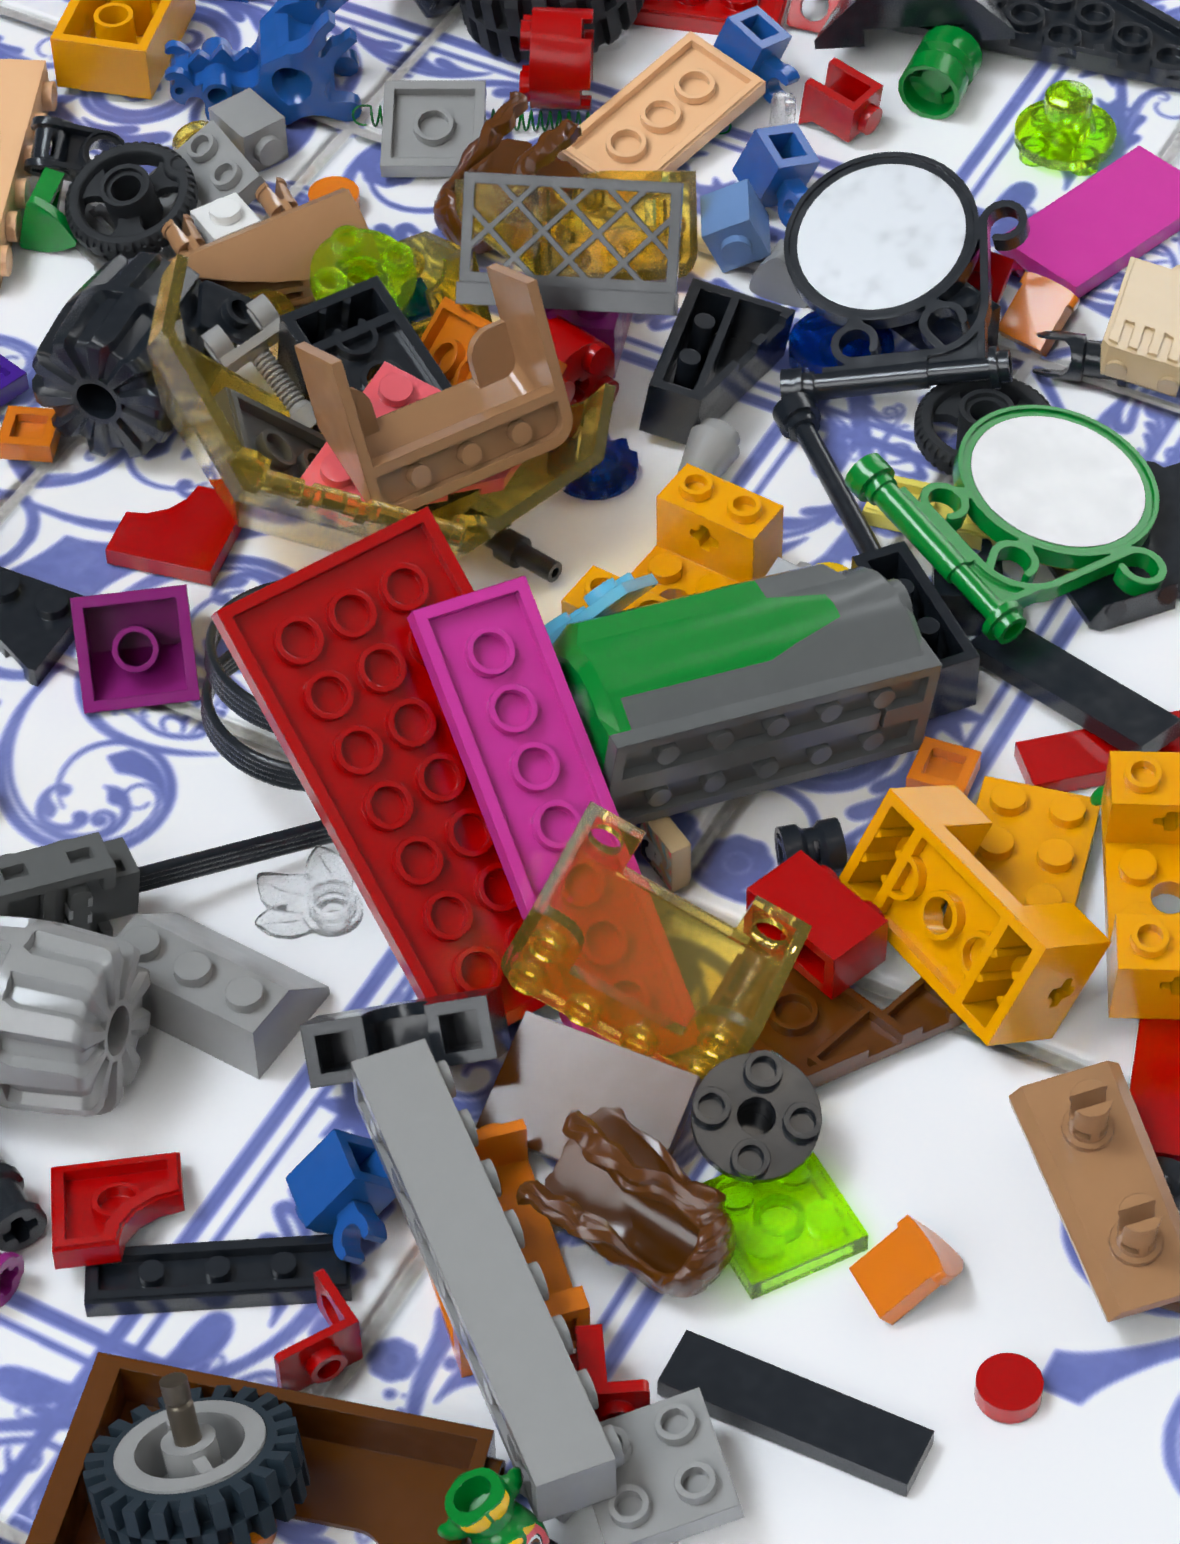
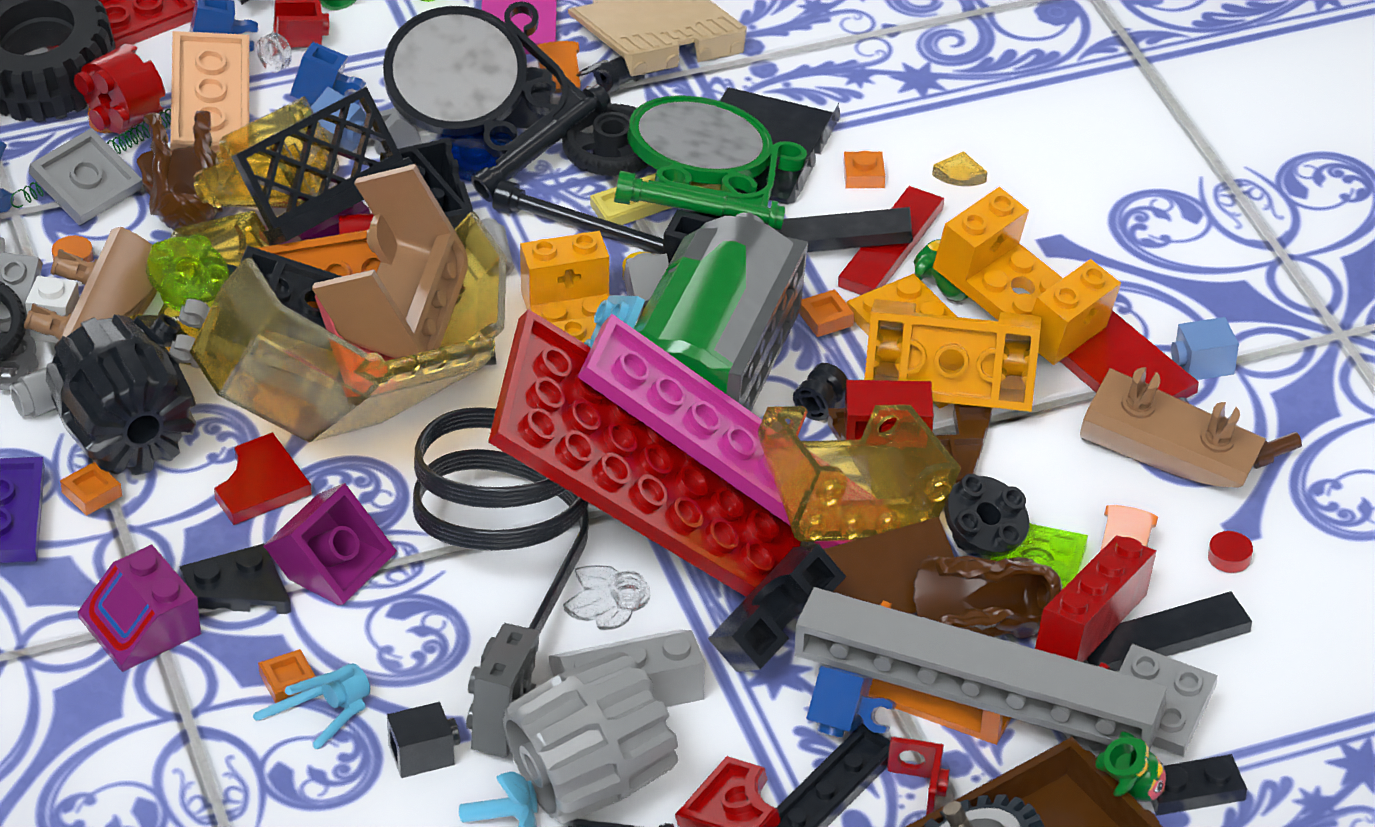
camera: 50 degrees left, 5 degrees down
(729, 1307) = (1096, 599): none -> red brick

